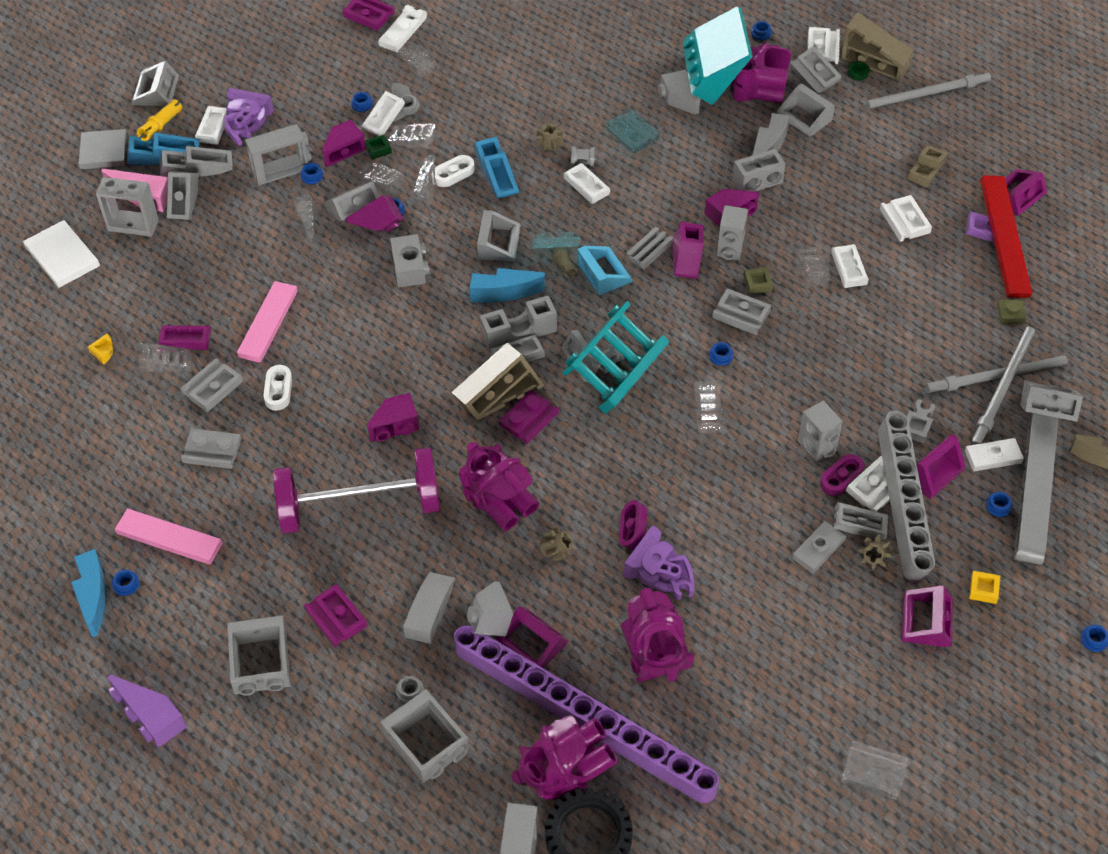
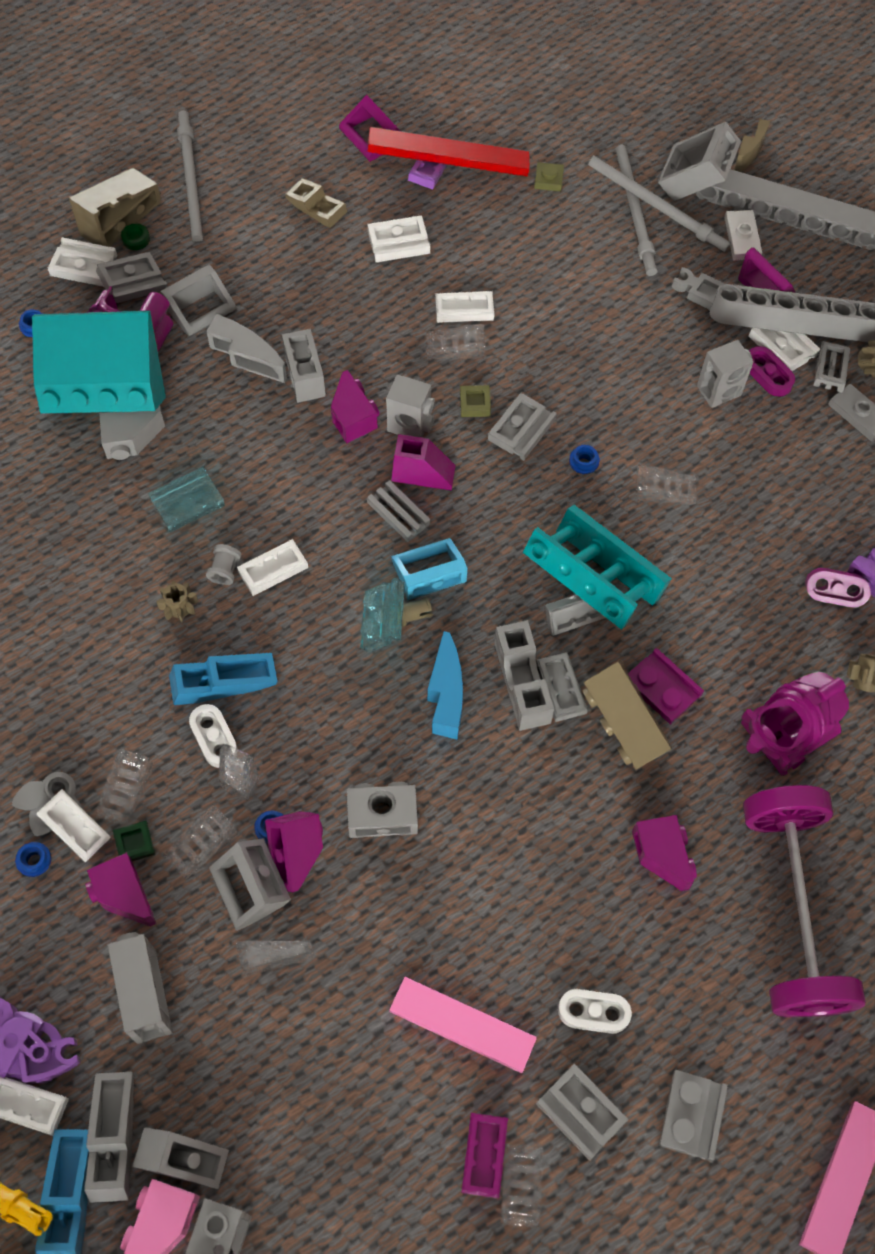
camera: 85 degrees left, 10 degrees up
(311, 173) = (168, 935): blue plate -> none
(487, 251) = (350, 702): light grey tile -> none
(999, 498) = (809, 243): blue plate -> none

